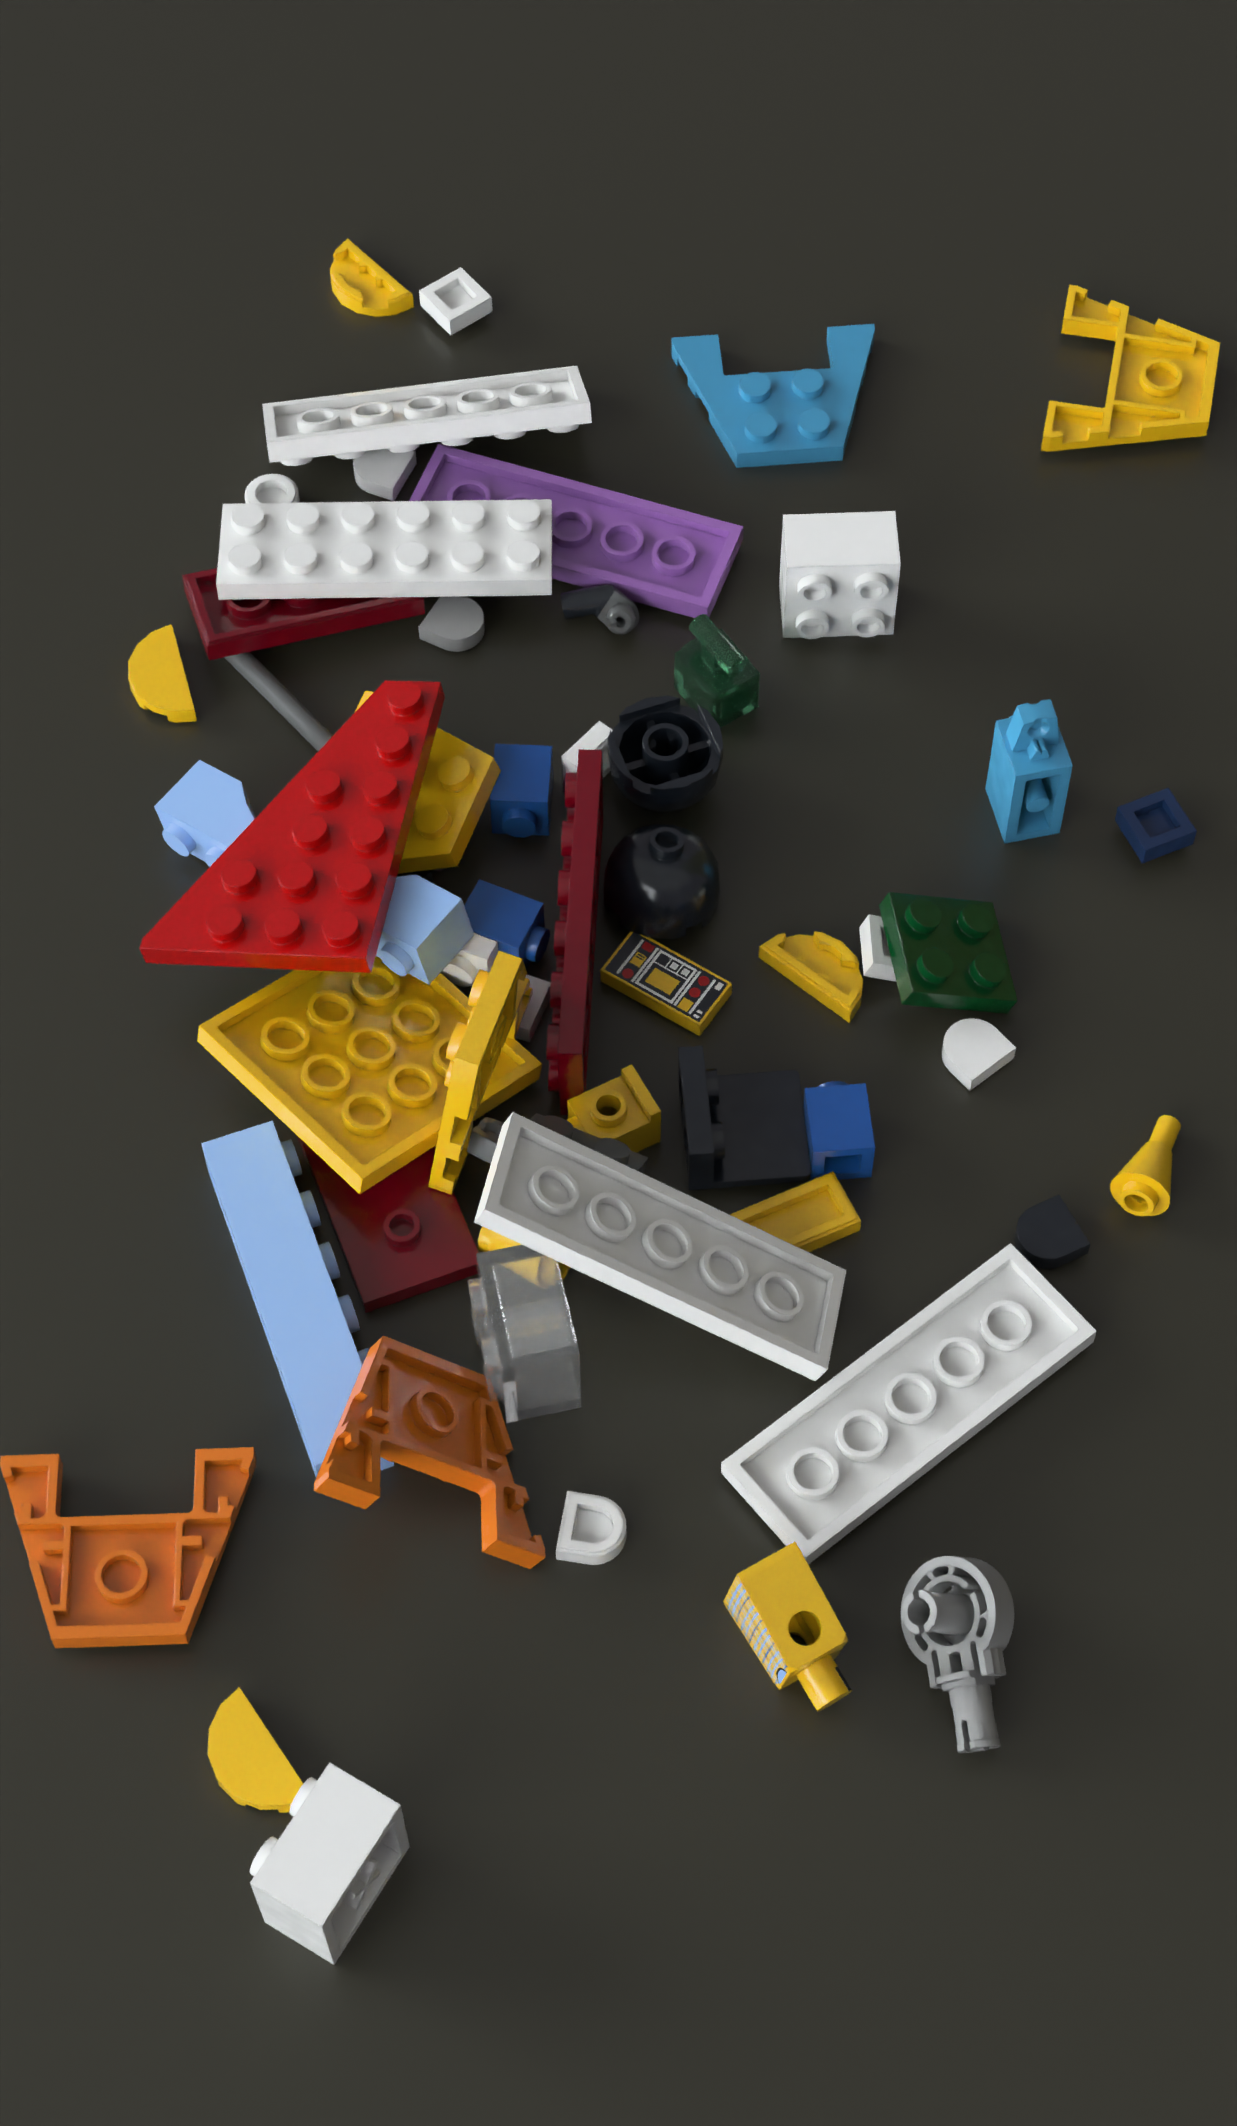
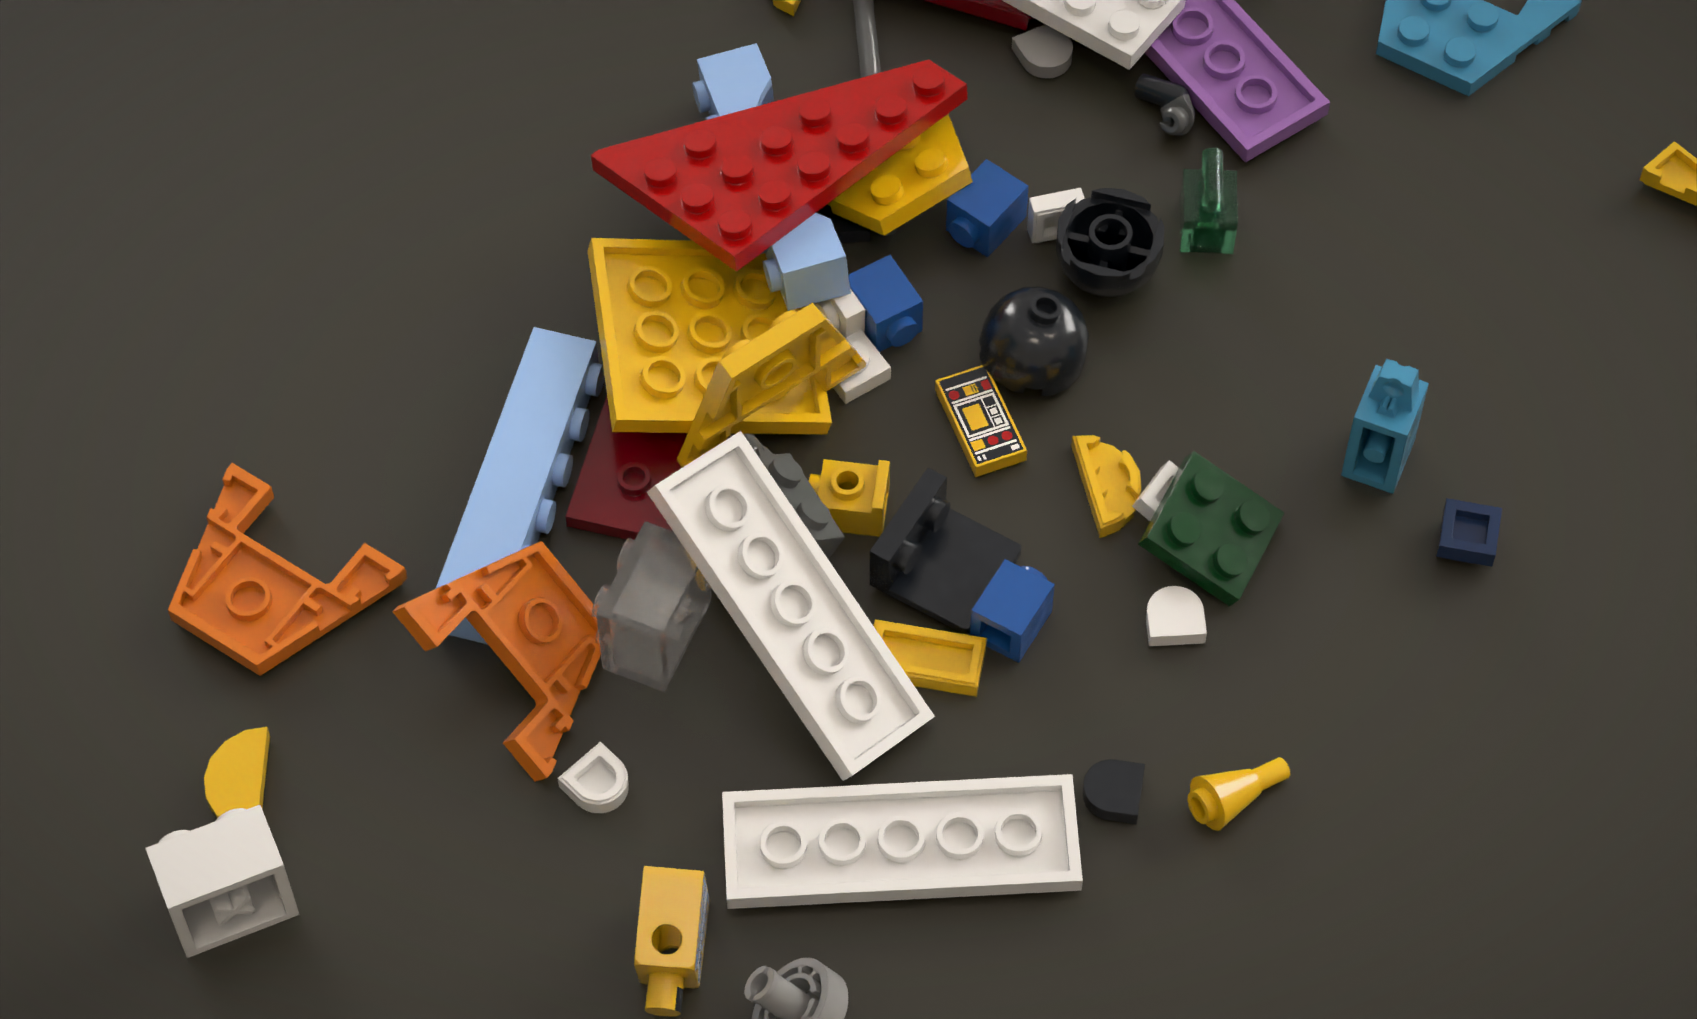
camera: 35 degrees right, 0 degrees up
(576, 929) = (934, 337): dark red plate -> none
(839, 574) = (1366, 182): white brick -> none

